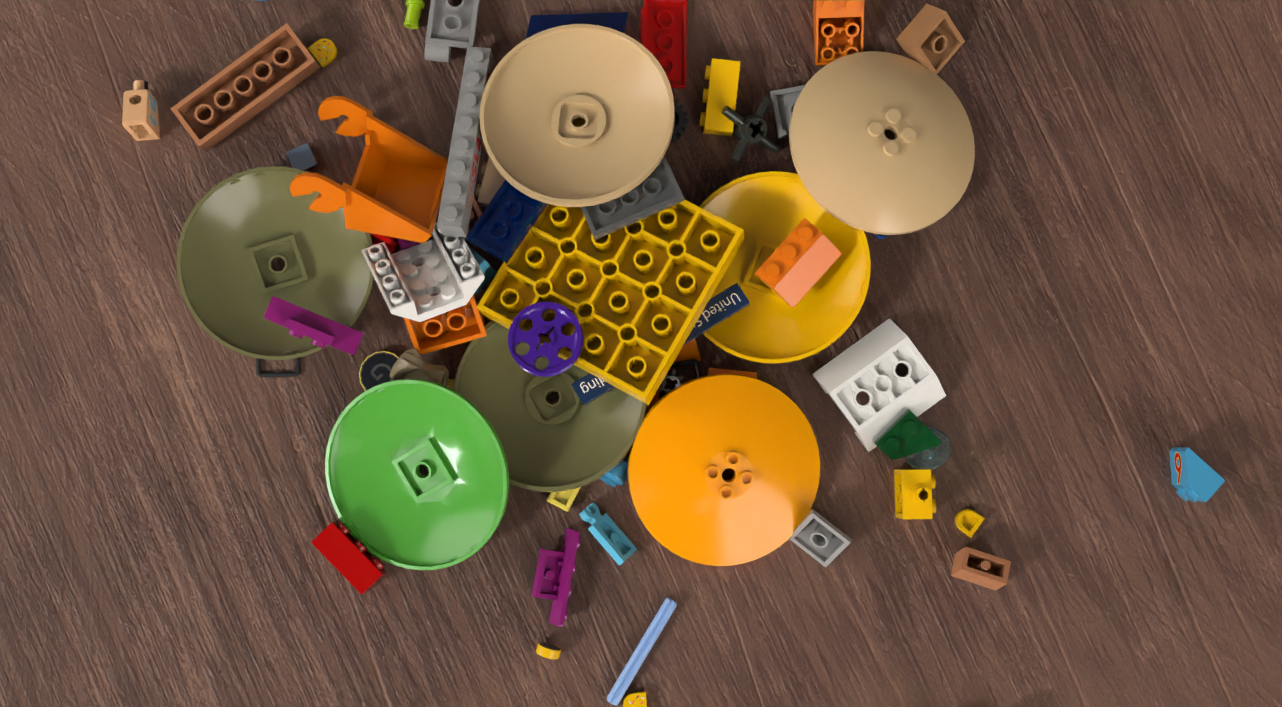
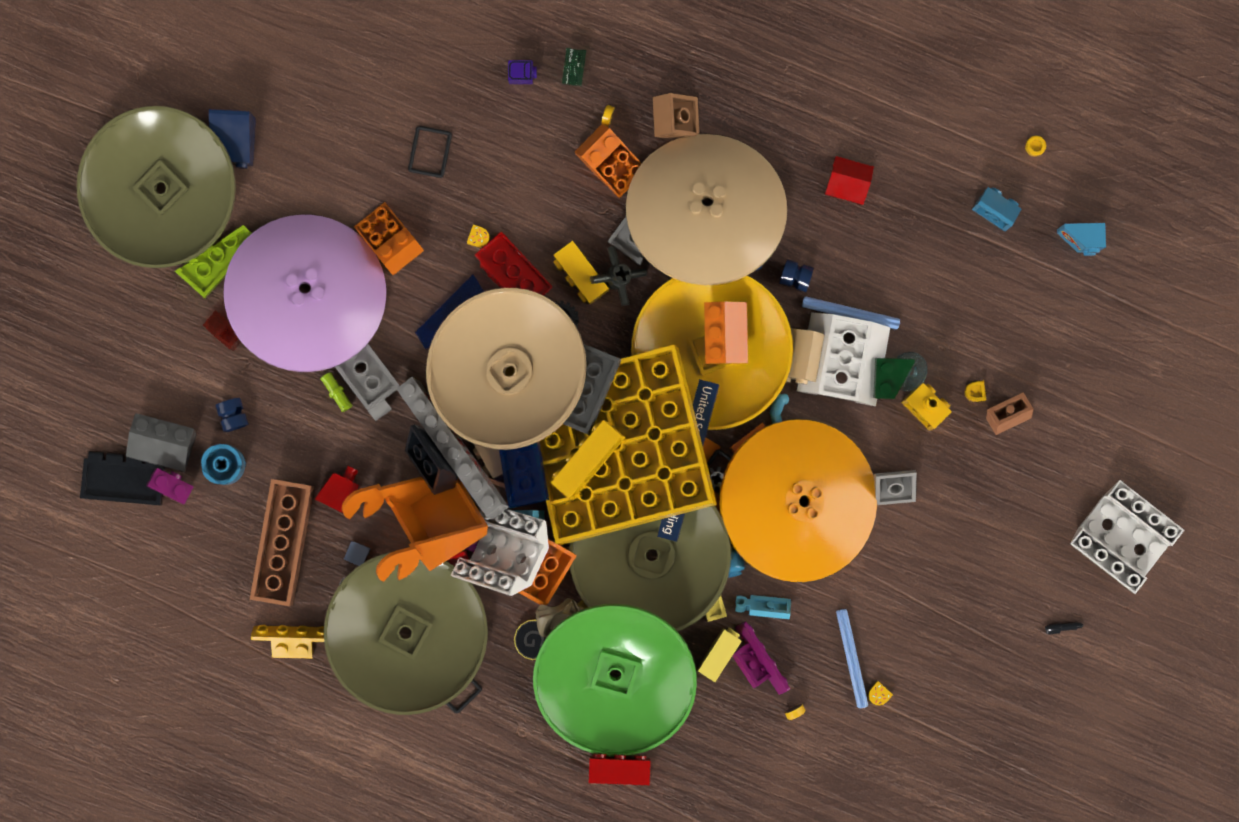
camera: 40 degrees left, 0 degrees up
(141, 112) = (230, 618): light nougat torso -> none
(172, 176) = (288, 640): none -> yellow bracket
(307, 323) = (462, 650): magenta bracket -> none
(324, 51) = (307, 474): yellow tile -> none
(338, 84) = (338, 489): none -> red torso
(436, 134) = (429, 461): none -> black slope
(529, 538) = (719, 654): none -> light yellow brick
(541, 327) = (610, 517): dark purple wedge -> none
(572, 259) = (587, 460): none -> yellow brick
(782, 372) = (777, 406): none -> medium azure arm
(849, 350) = (806, 355): none -> tan brick
(906, 273) = (796, 275): none -> dark blue wheel
(911, 331) = (841, 310): none -> light blue axle
(1030, 235) = (849, 180): none -> red slope
(1137, 380) = (997, 208): none -> dark azure slope
(1222, 357) = (1035, 146): none -> yellow tile

